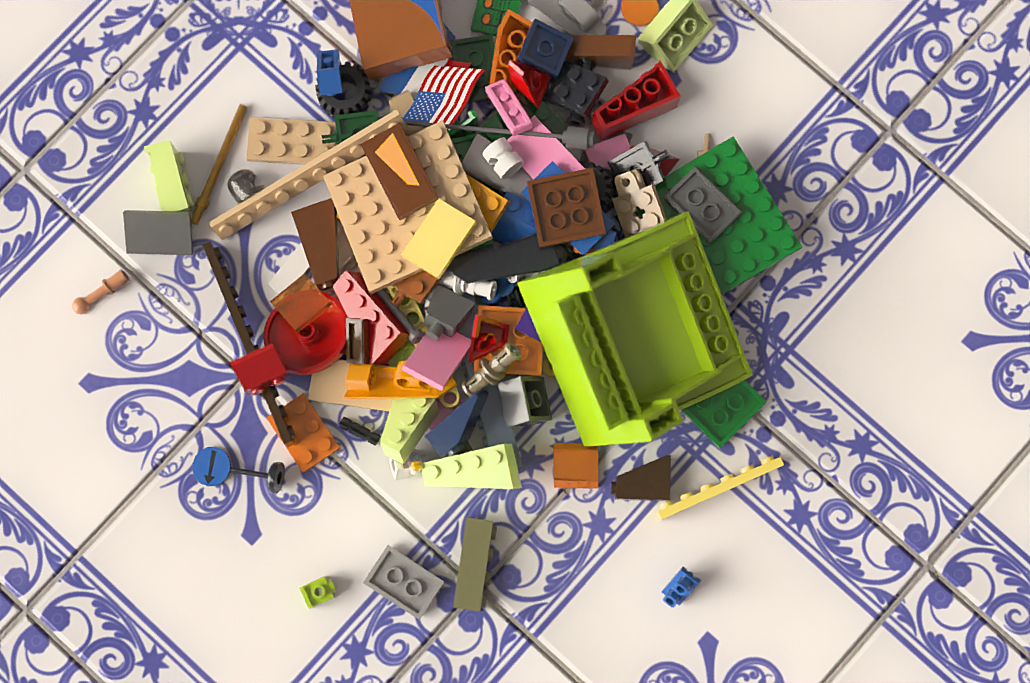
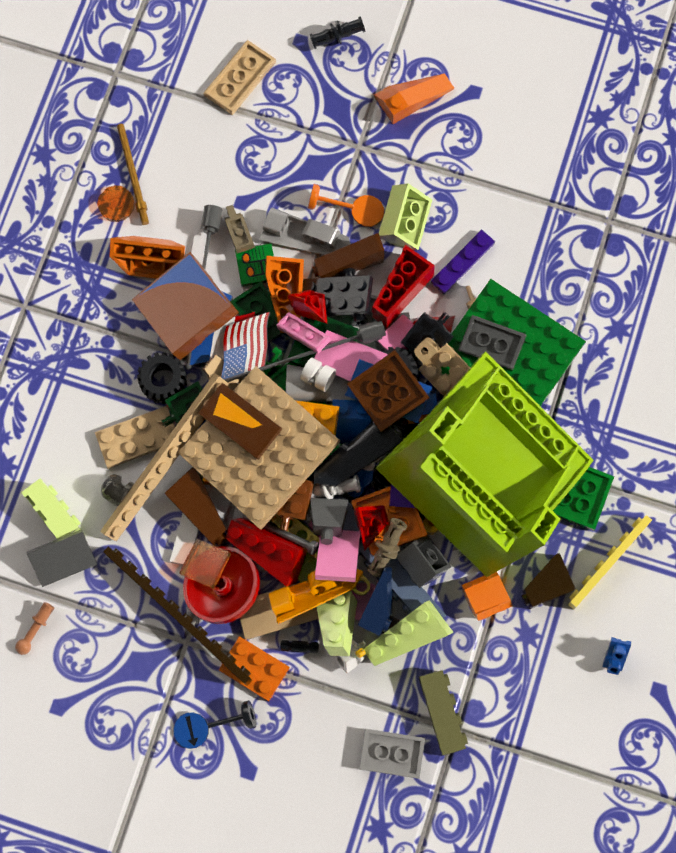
camera: 20 degrees left, 5 degrees down
(202, 202) = (86, 517): pearl gold bar -> none
(260, 370) = (199, 631): red slope -> none
(311, 598) = (318, 795): lime brick -> none
(329, 72) = (146, 367): blue slope -> none
(357, 340) = (266, 572): dark brown tile -> none
(439, 238) = (297, 460): light yellow tile -> none
(545, 48) = (310, 274): dark blue plate -> none
(714, 105) = (462, 262): none -> dark purple plate

